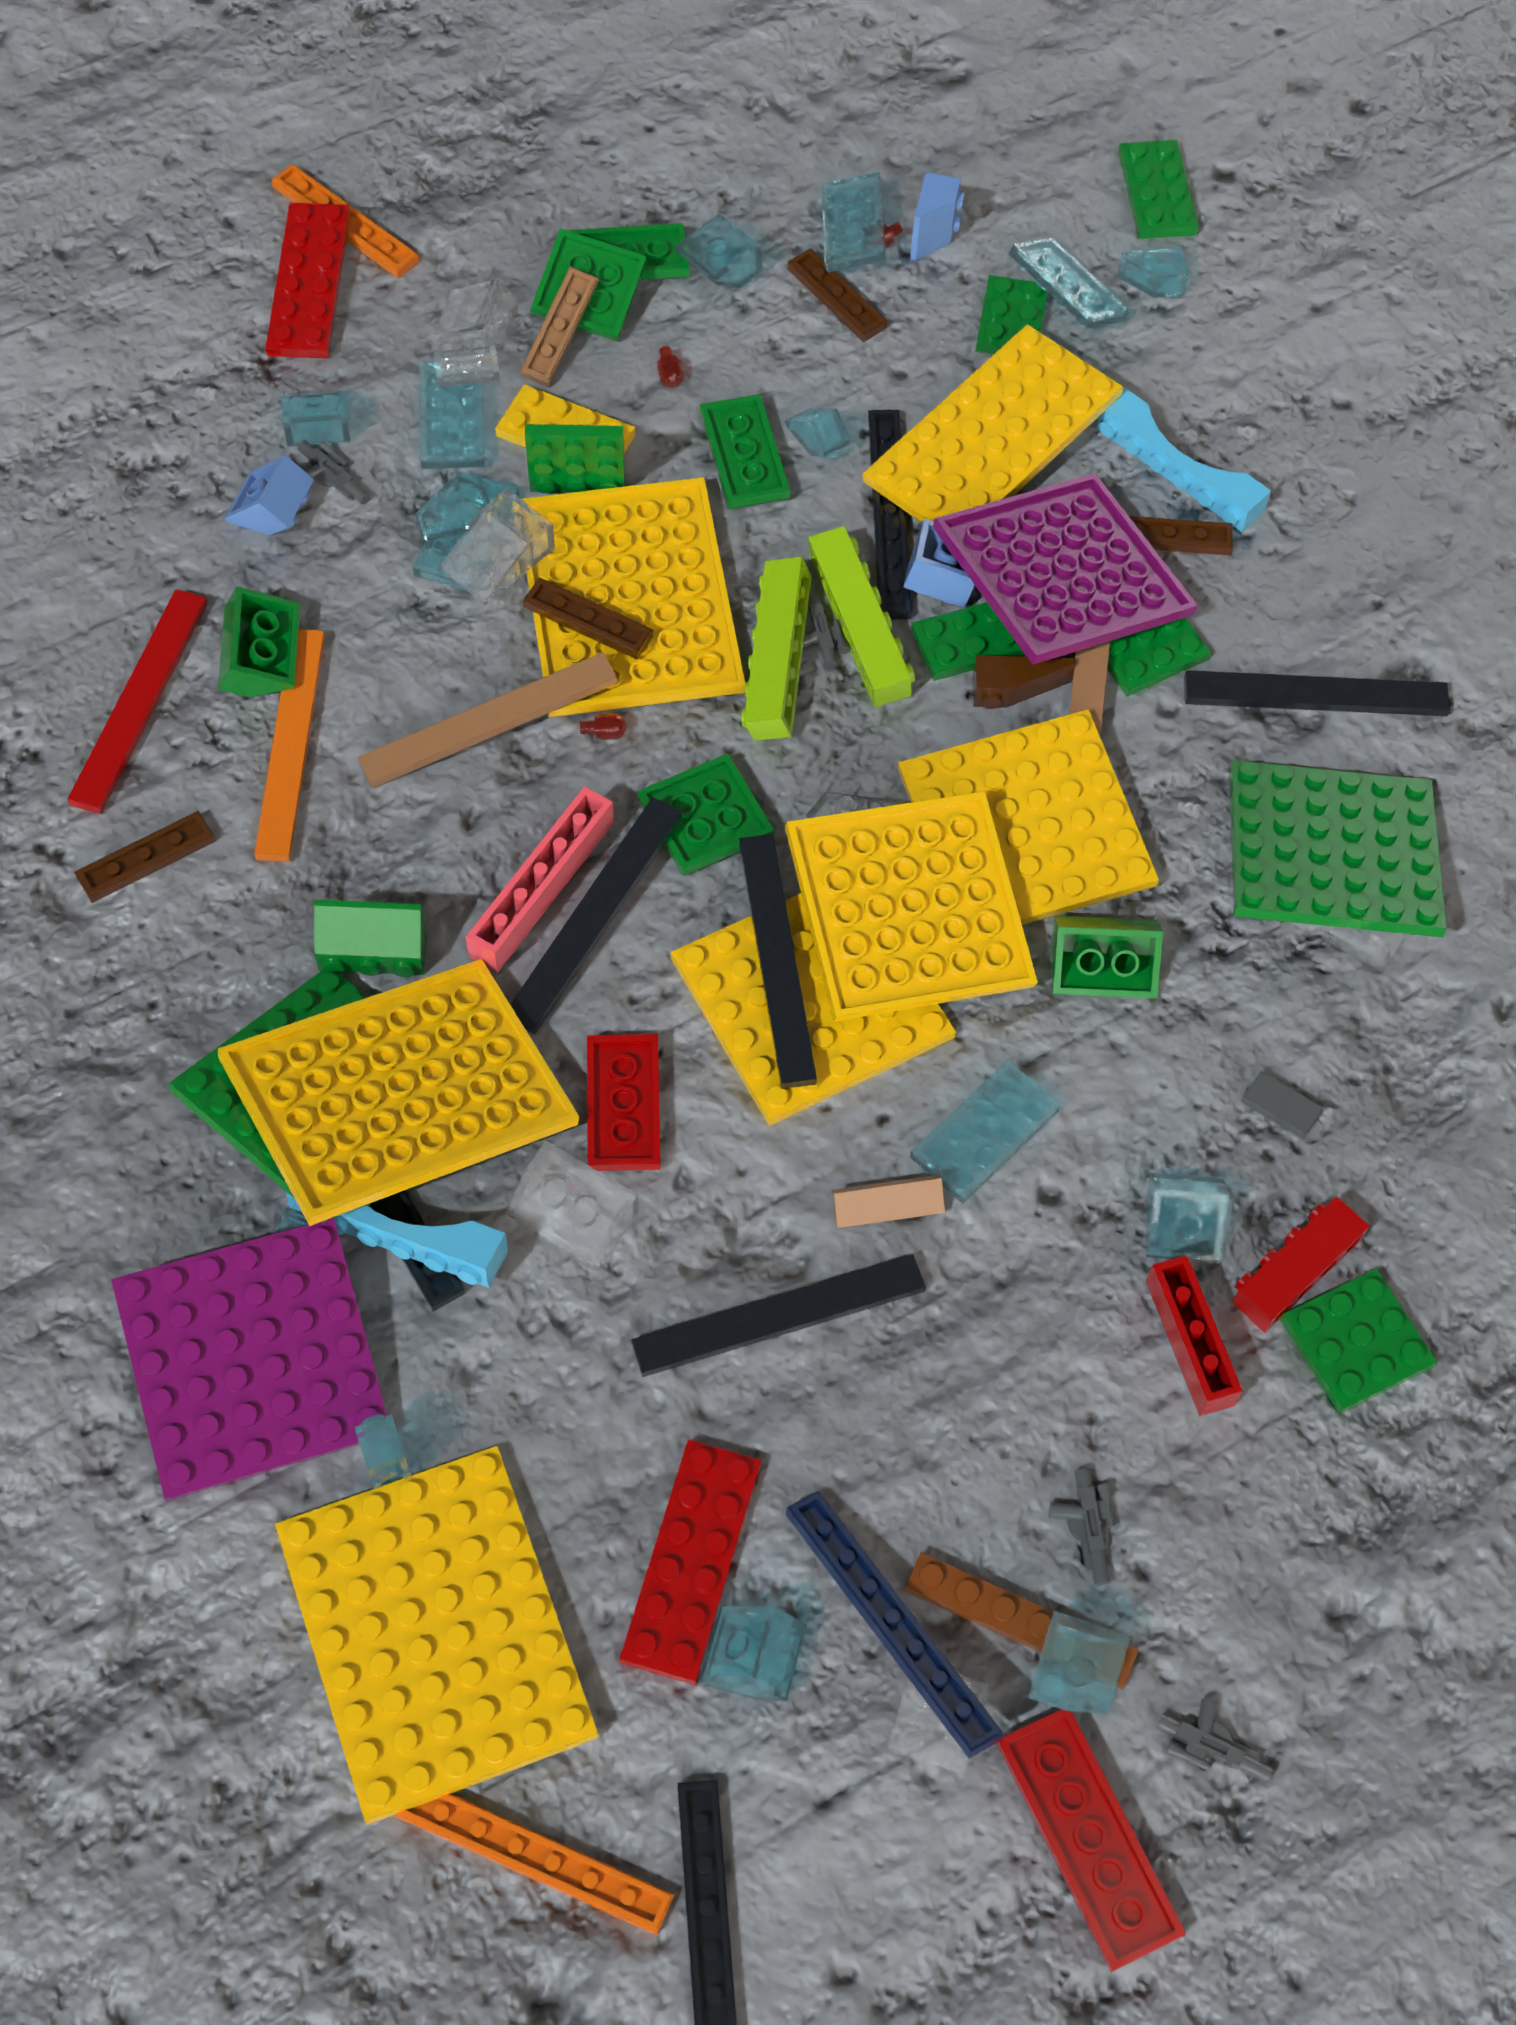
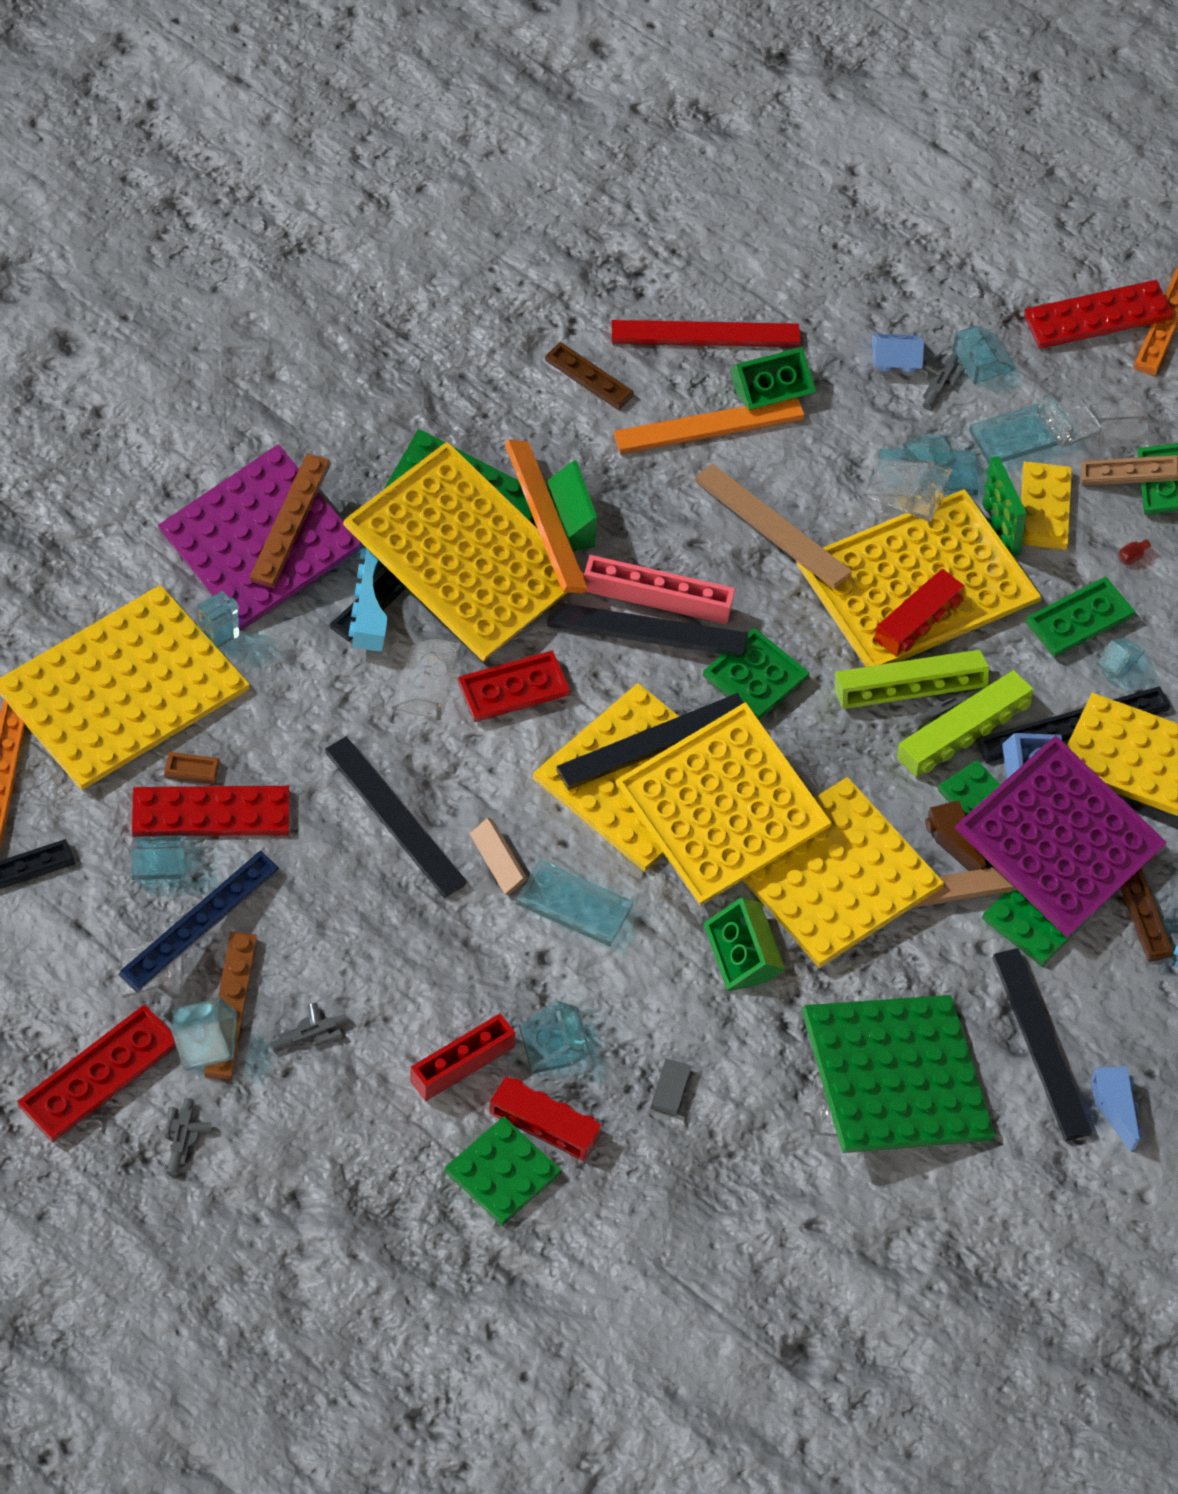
camera: 70 degrees right, 5 degrees down
(257, 1300) = (290, 520): none -> dark orange plate
(373, 973) = (546, 517): none -> orange tile
(588, 618) = (881, 558): reddish brown tile -> none
(605, 726) = (801, 596): clear red cylinder -> none
(609, 1567) = (192, 768): none -> dark orange tile
(692, 602) = (919, 613): none -> red brick
(1416, 644) = (1114, 1099): none -> medium blue slope

